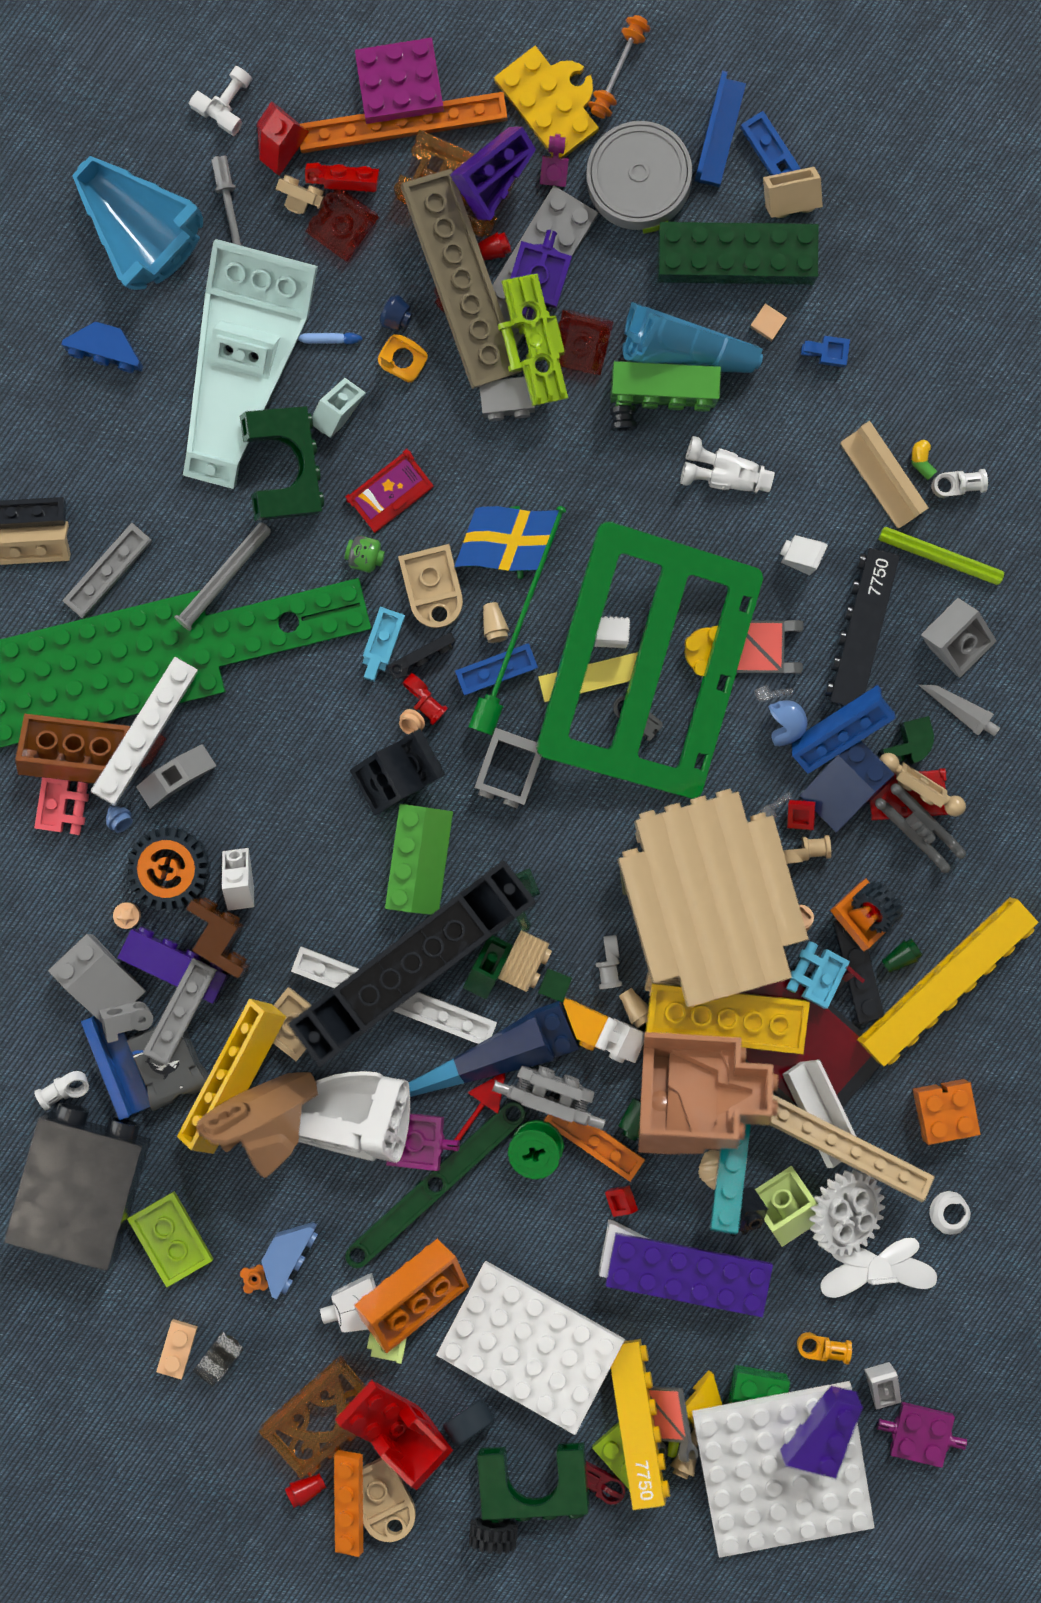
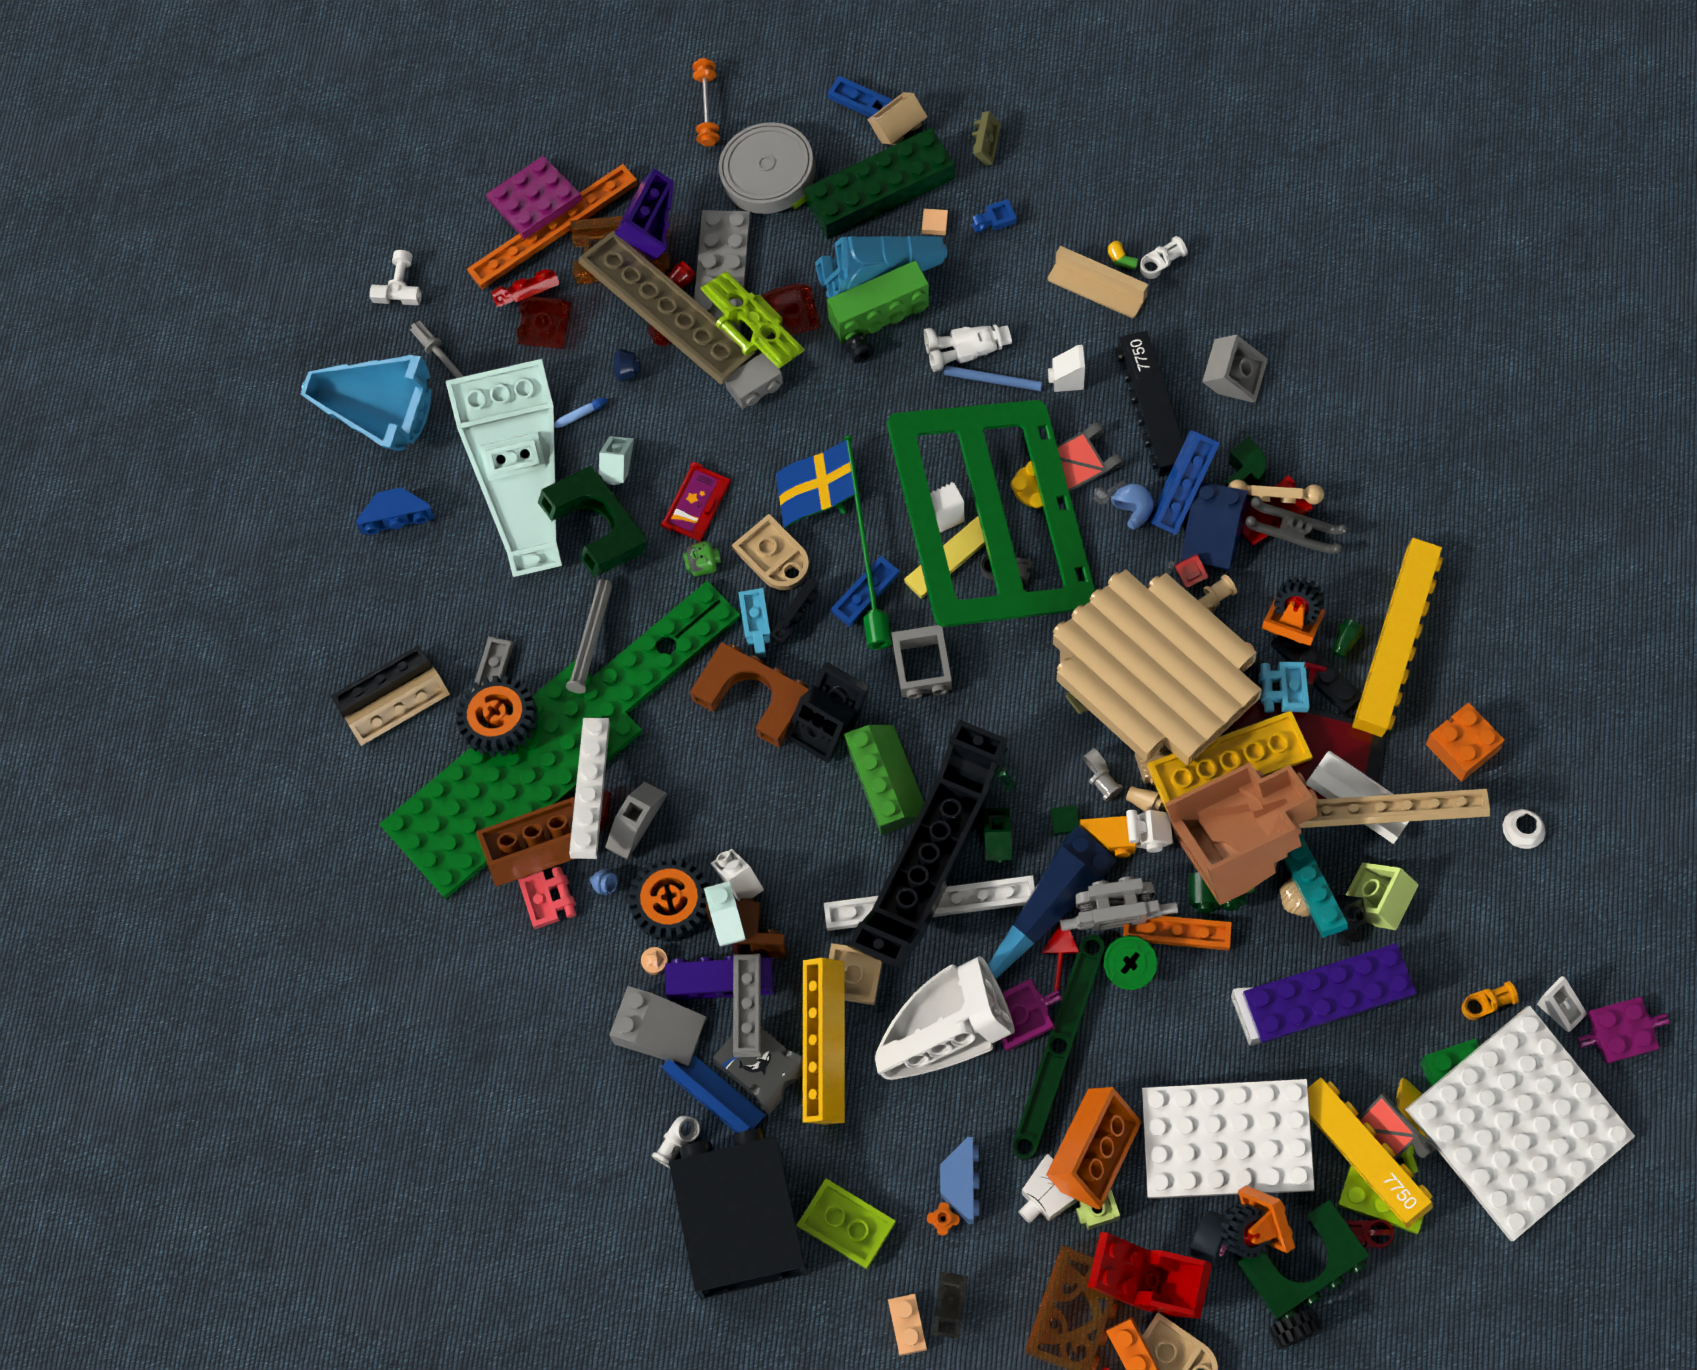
camera: 25 degrees left, 20 degrees down
(84, 593) = (504, 729): none -> wheel
(124, 1019) = (699, 1045): light grey leg -> none
(198, 926) = (724, 913): none -> light aqua slope
(262, 1119) = (876, 1054): medium nougat piece -> none
(278, 138) = (457, 284): red slope -> none
(298, 196) = (497, 319): tan piece -> none
(335, 675) = (732, 666): none -> dark orange arch
(398, 342) = (637, 399): light orange piece -> none
(411, 721) = (813, 667): light nougat plate -> none
(426, 703) = (808, 641): red connector -> none
(494, 623) = (843, 557): tan cone -> none
(507, 1440) = (1255, 1223): none -> plate
(524, 961) = (1026, 811): tan brick -> none
(548, 263) = (734, 261): dark purple plate -> none
(549, 99) = (666, 151): yellow plate -> none
(555, 168) = (695, 198): magenta plate -> none
(621, 1201) = (1232, 969): red plate -> none
(685, 1469) = (1430, 1171): tan cone -> none
(720, 131) = (813, 108): blue panel -> none
(731, 518) = (993, 378): none -> medium blue bar
(825, 1435) = (1533, 1054): dark purple wedge -> none
(847, 1212) = (1433, 867): white gear -> none
(867, 260) = (986, 138): none -> olive plate
(888, 1267) = (1478, 910): white piece -> none
(941, 555) = (1181, 318): lime axle -> none
(967, 712) = (1282, 424): light grey bar -> none

